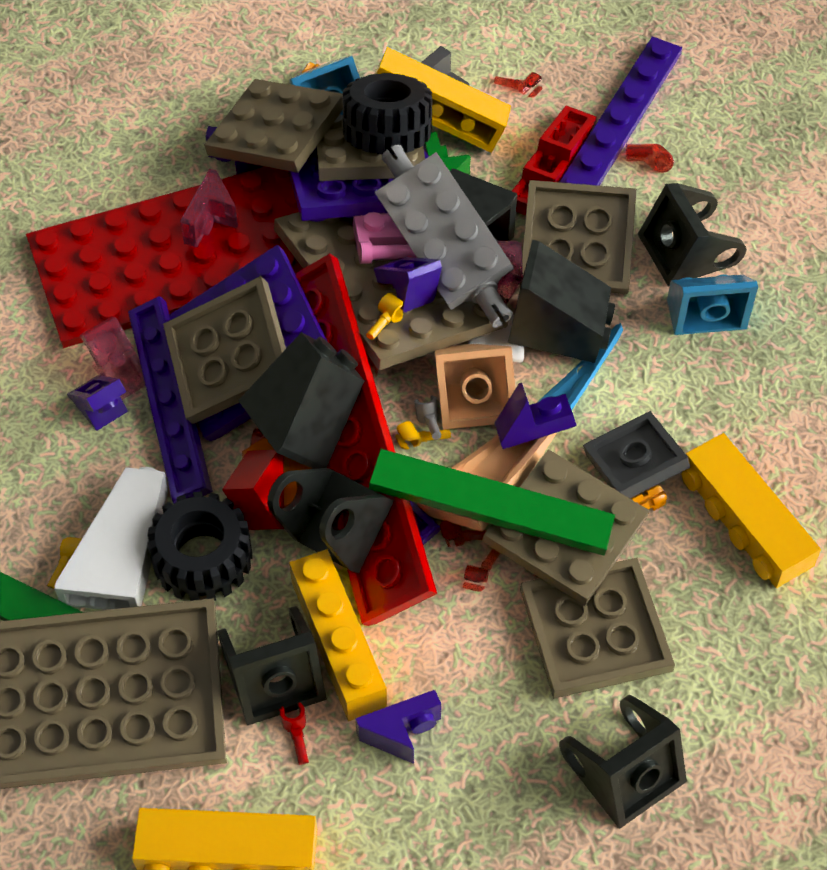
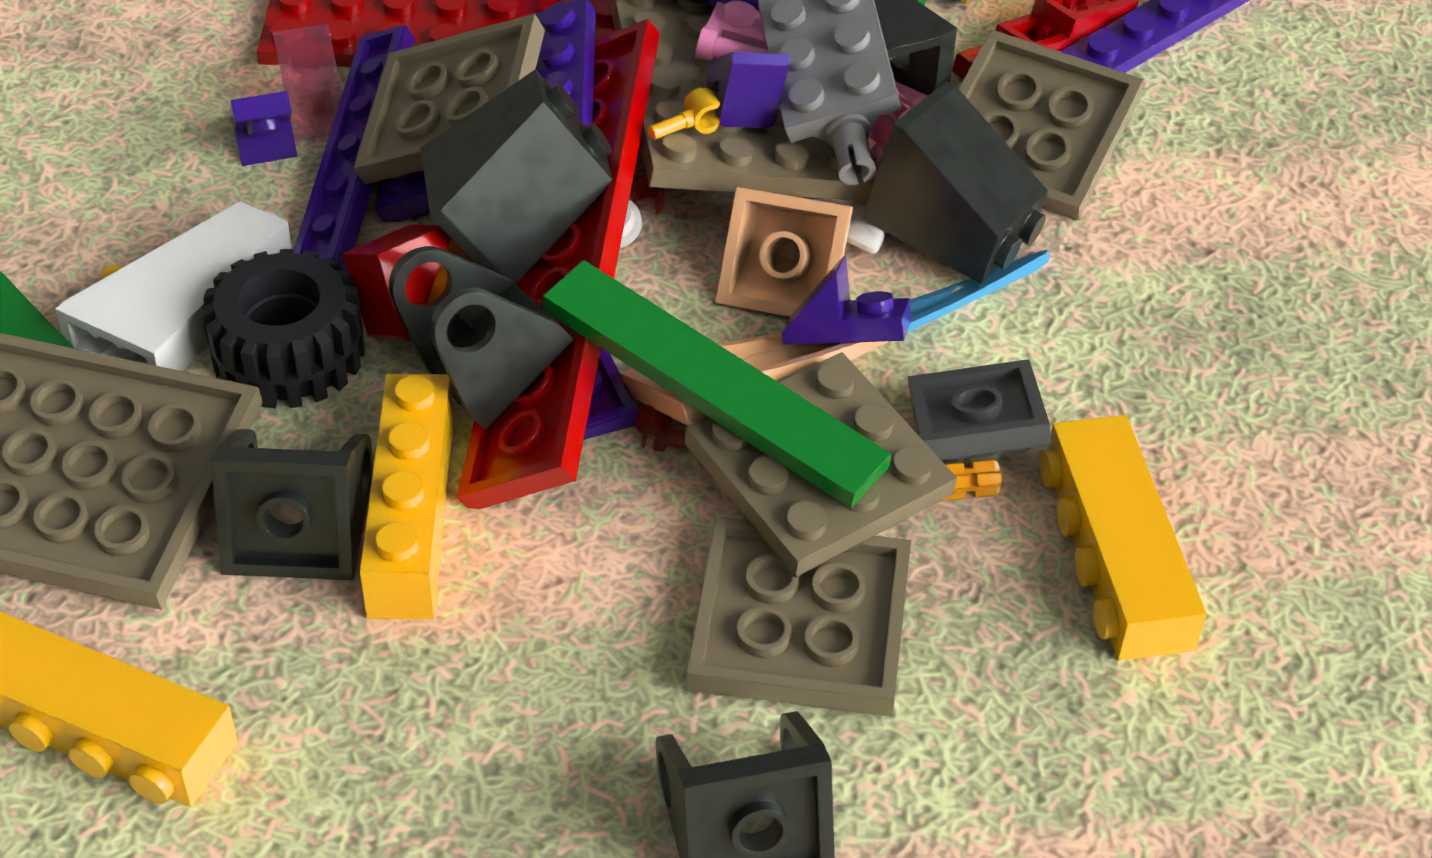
camera: 20 degrees right, 10 degrees down
(295, 727) = (285, 595): red hand -> none
(389, 726) = (416, 633): dark purple slope -> none
(408, 432) = (661, 284): yellow hand -> none
(429, 414) = (702, 274): light grey hand -> none
(480, 574) = (666, 491): clear red hand -> none
(652, 154) = (1201, 67): clear red arm -> none
(691, 247) = (1187, 176): pearl dark grey hose -> none
(711, 303) = (1193, 256): dark azure slope -> none

